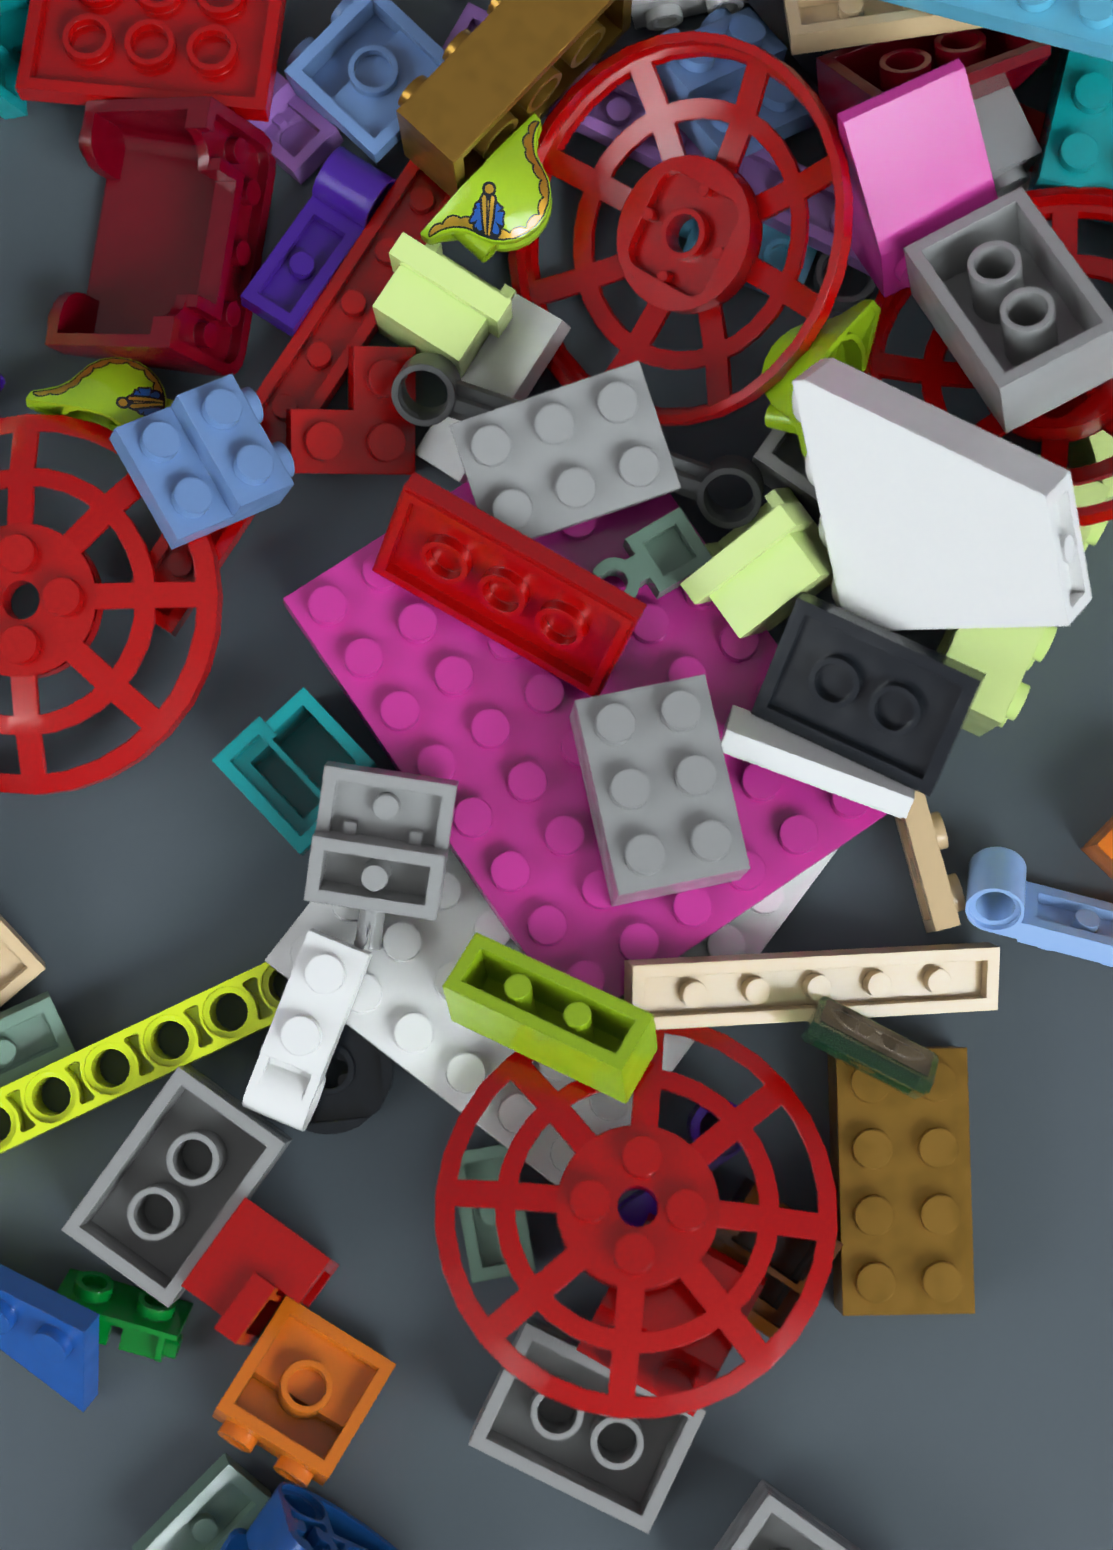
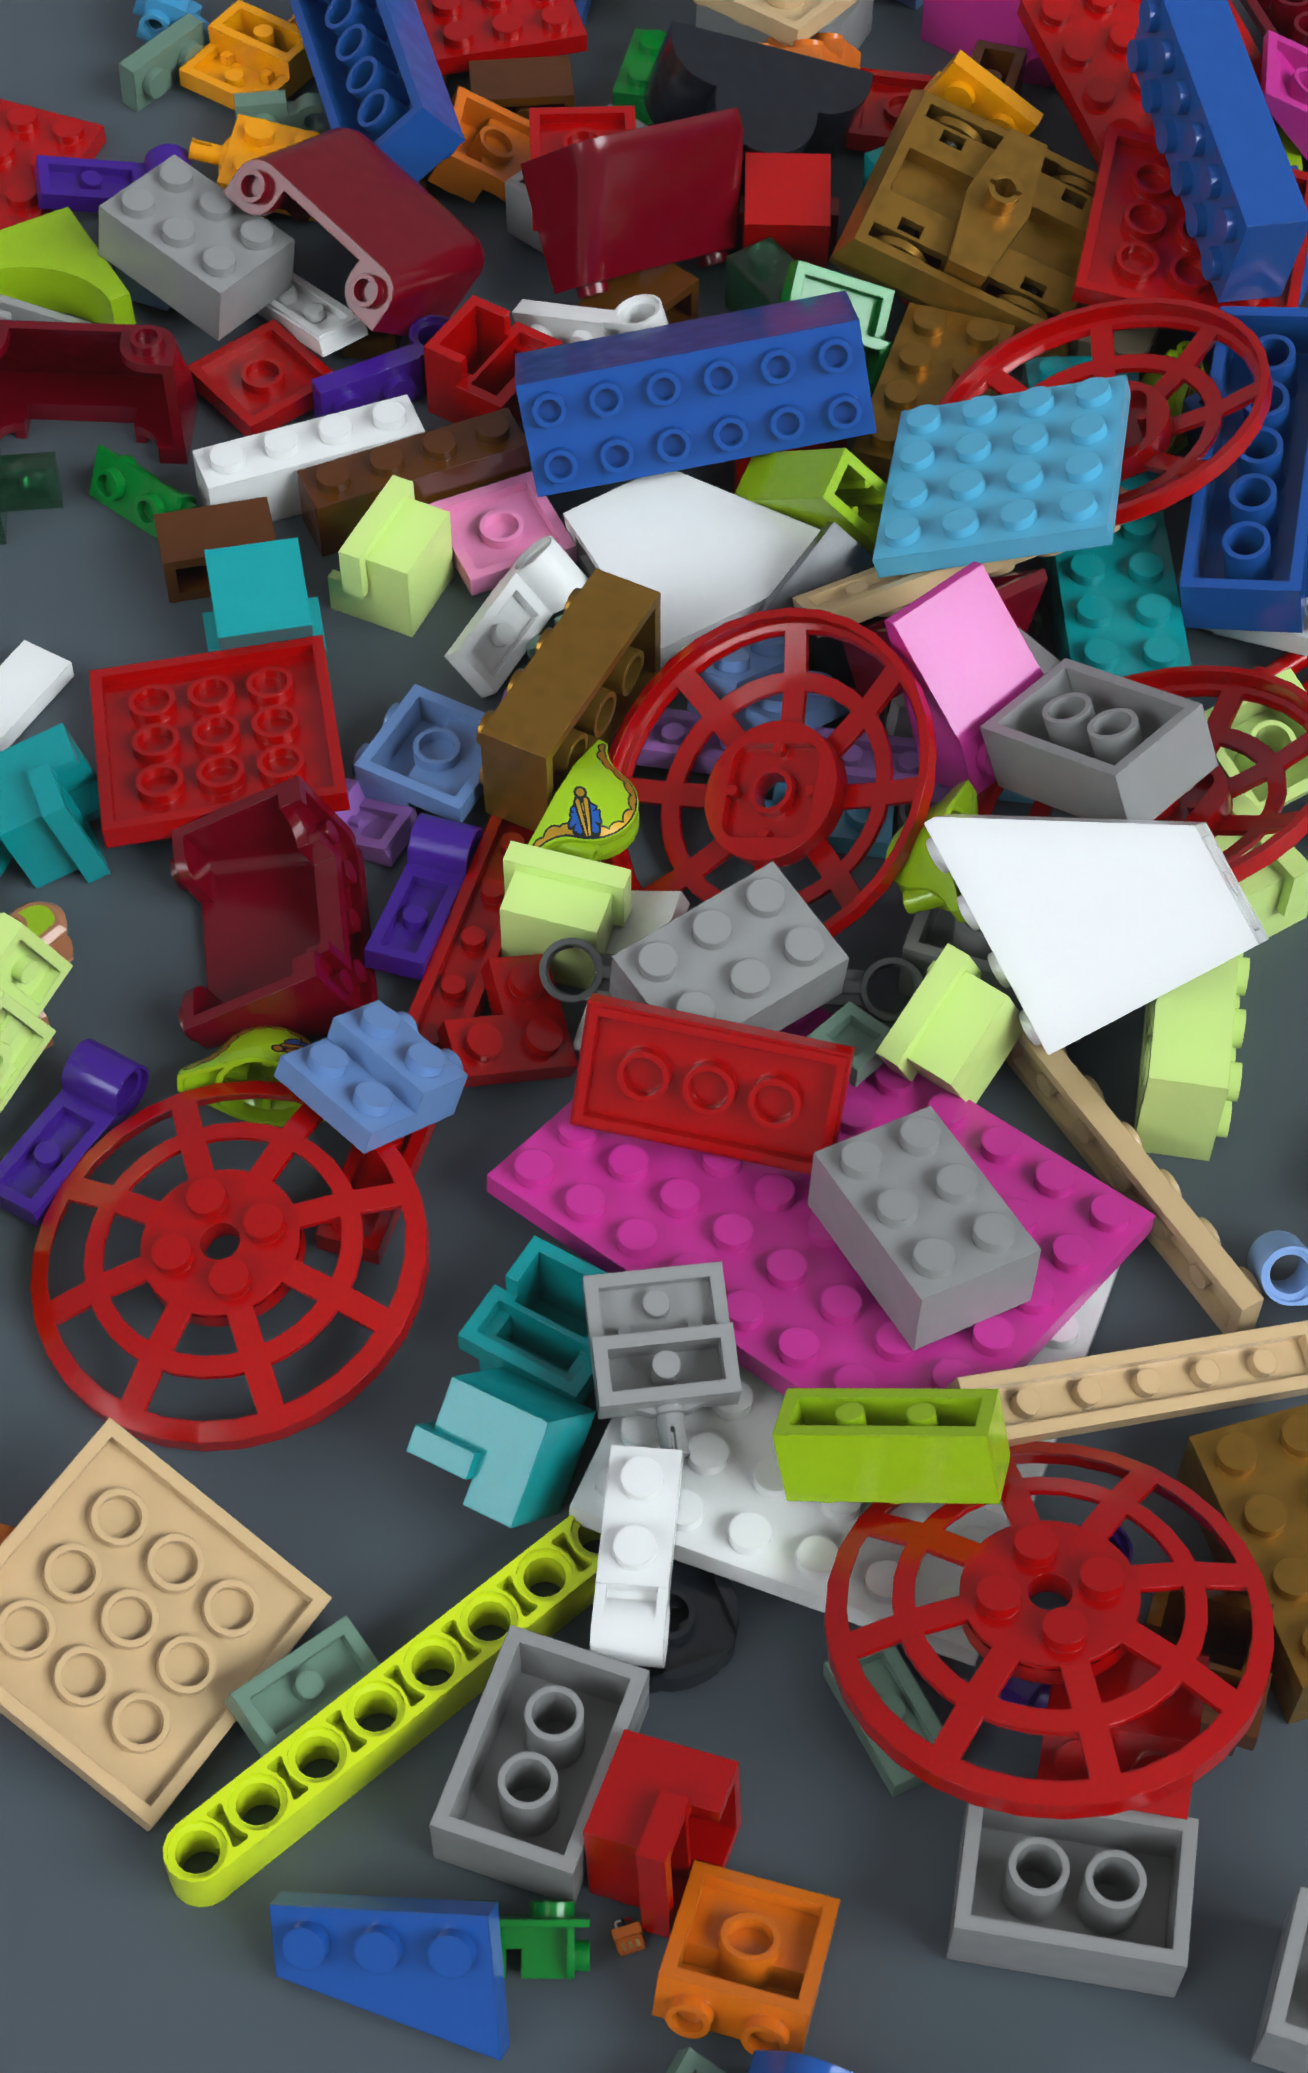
camera: 15 degrees left, 30 degrees down
(213, 1337) = (628, 1937): none -> orange piece
(224, 881) = (508, 1439): none -> teal plate
(800, 759) = (1074, 1172): white tile -> none
(867, 693) = (1091, 1093): black plate -> none
(871, 1048) = (1224, 1414): slope -> none

